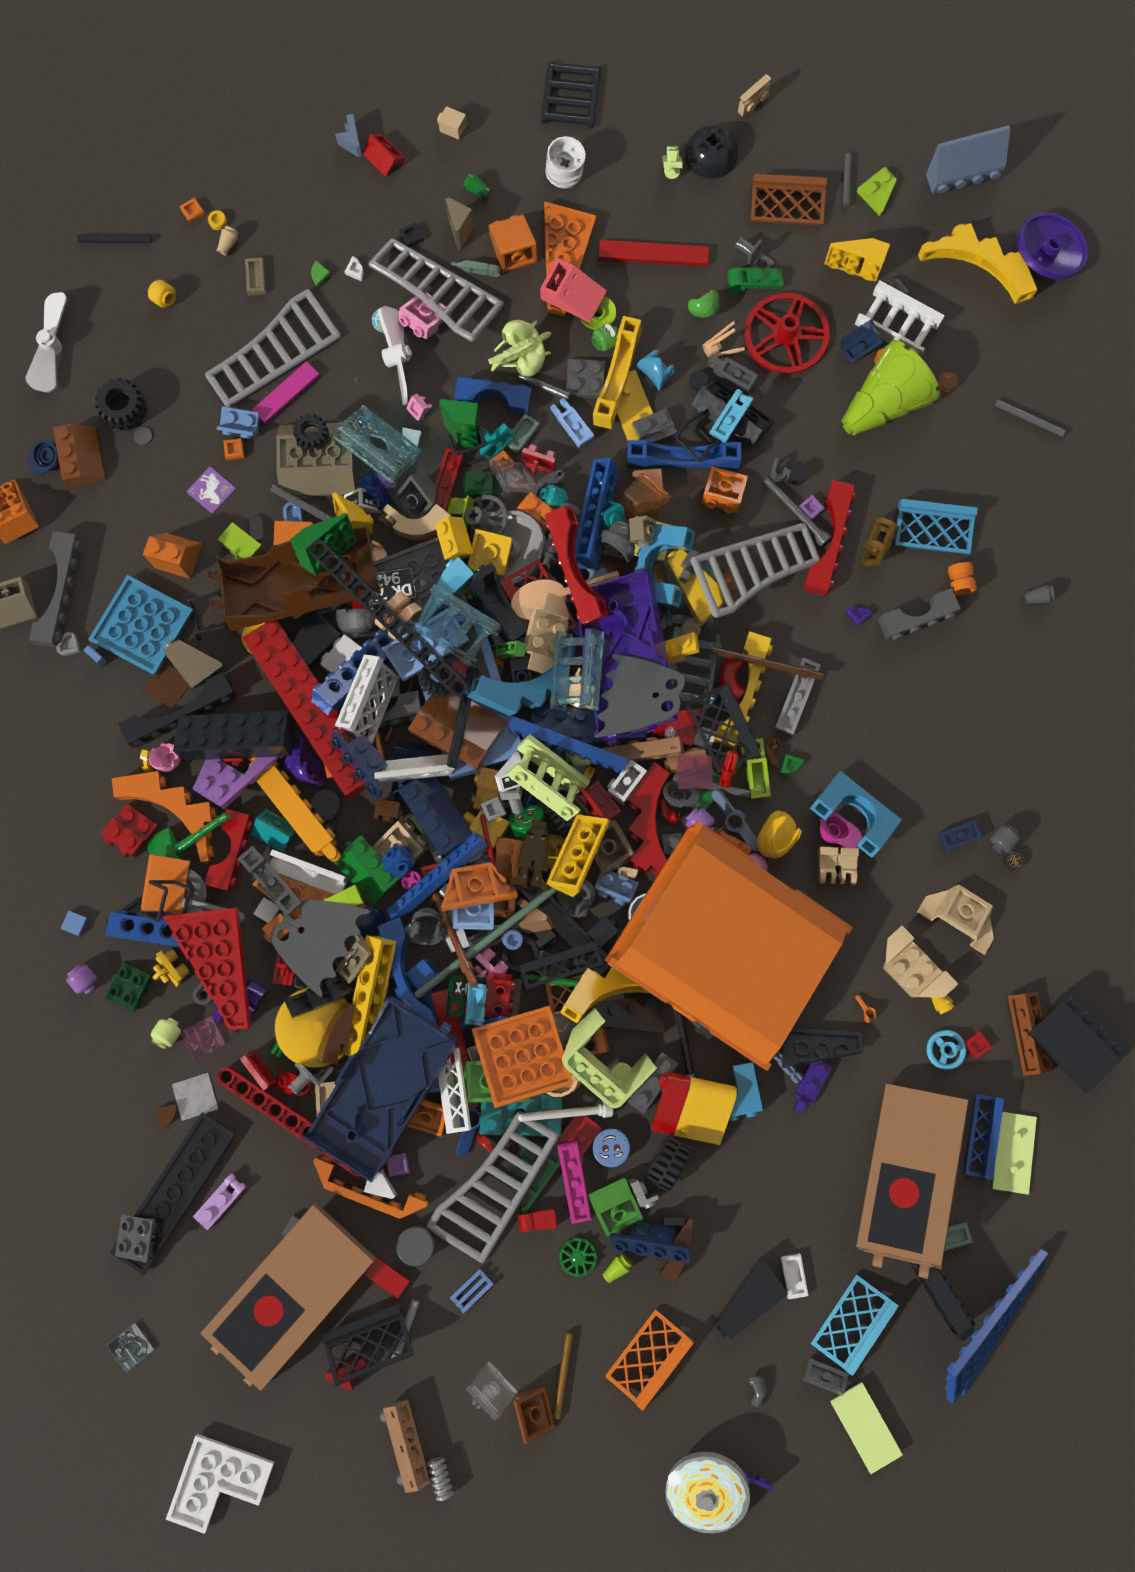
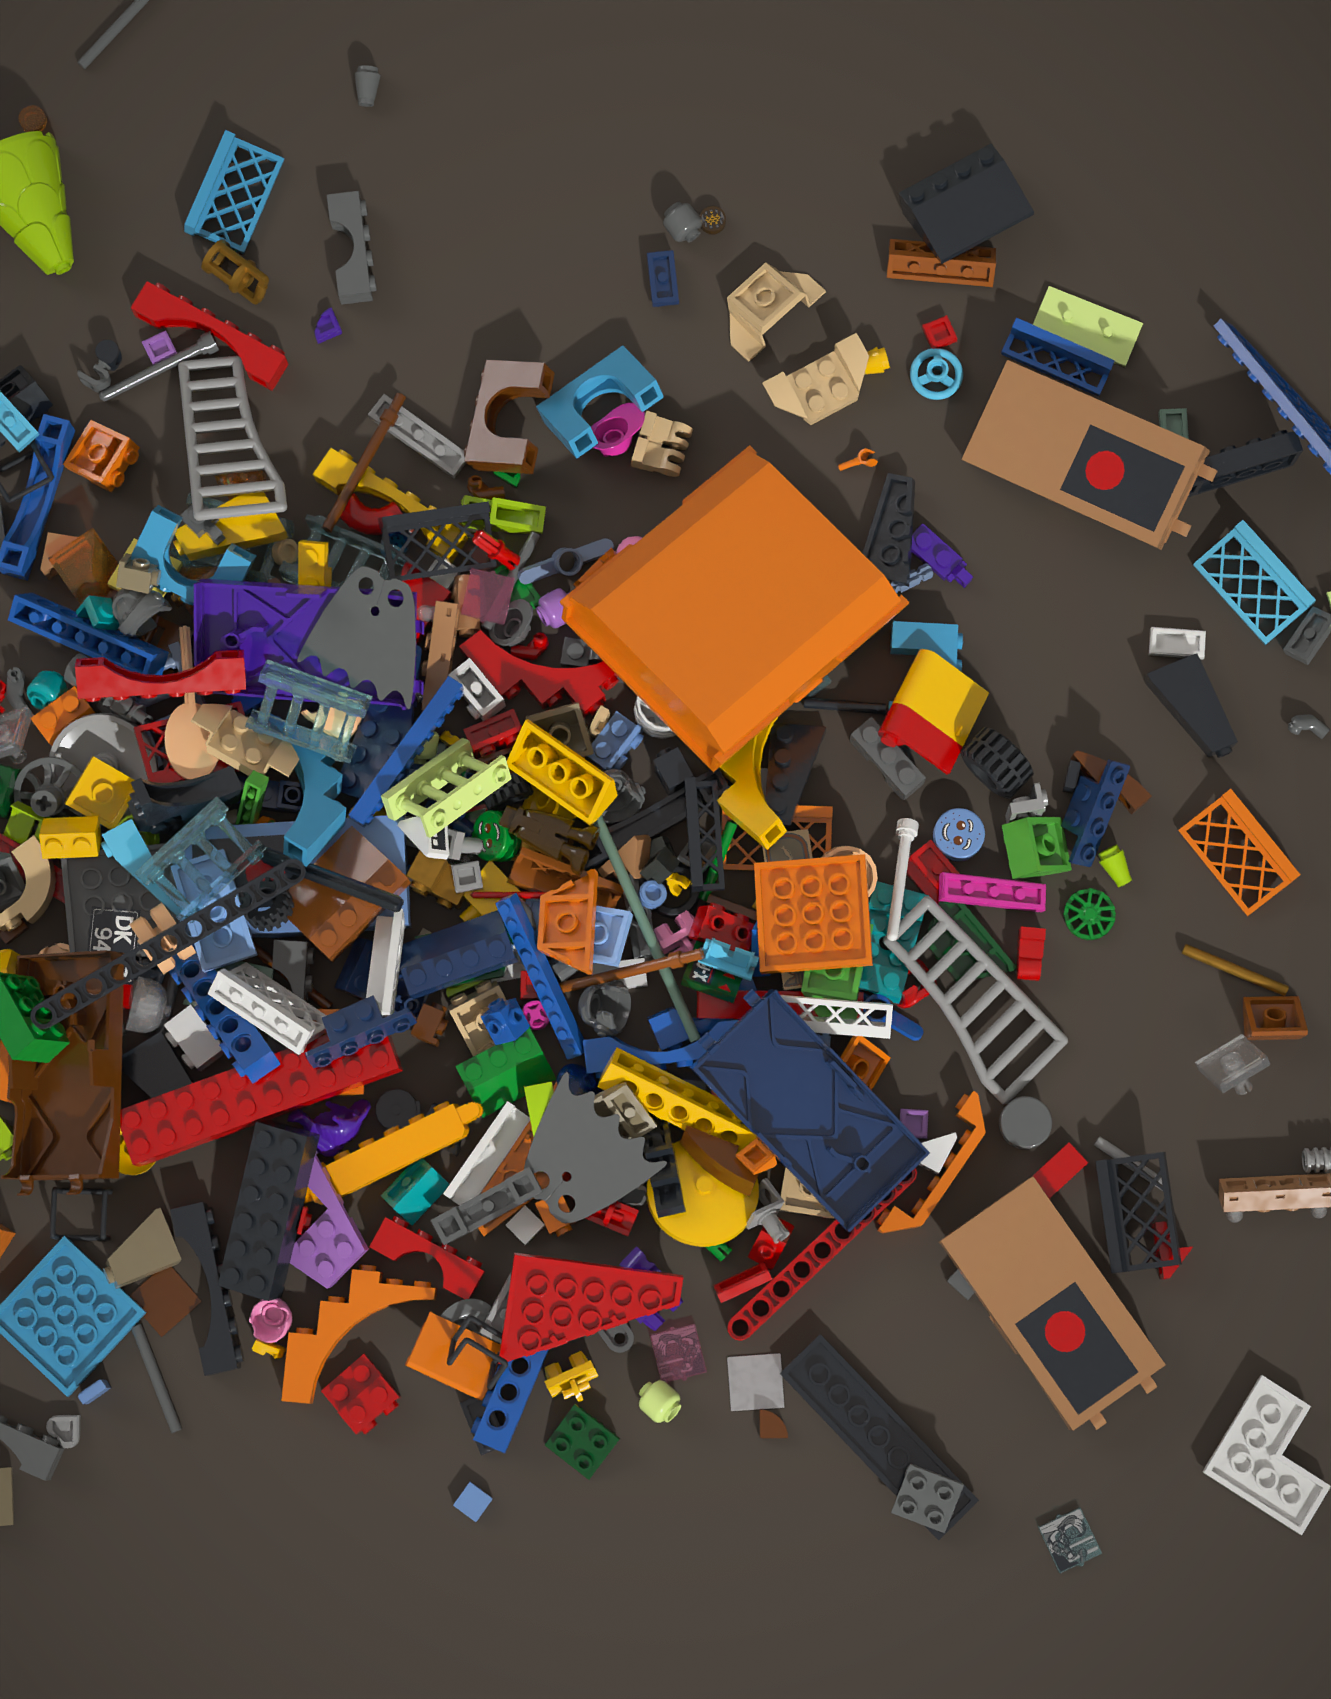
camera: 75 degrees left, 0 degrees up
(81, 979) = (555, 1505): medium lavender head -> none
(113, 694) = (156, 1378): none -> dark grey bar
(166, 845) = (394, 1346): green piece -> none
(219, 1202) = (906, 1377): lavender plate -> none
(339, 1057) = (757, 1157): none -> orange slope
(458, 1303) = (1109, 1057): medium blue tile -> none
(531, 941) = (662, 868): none -> pearl dark grey piece
(612, 1084) = (877, 807): yellowish green windscreen -> none
(777, 835) = (602, 511): yellow hair -> none
(848, 741) = (500, 384): none -> arch
(962, 578) = (316, 177): orange wheel -> none

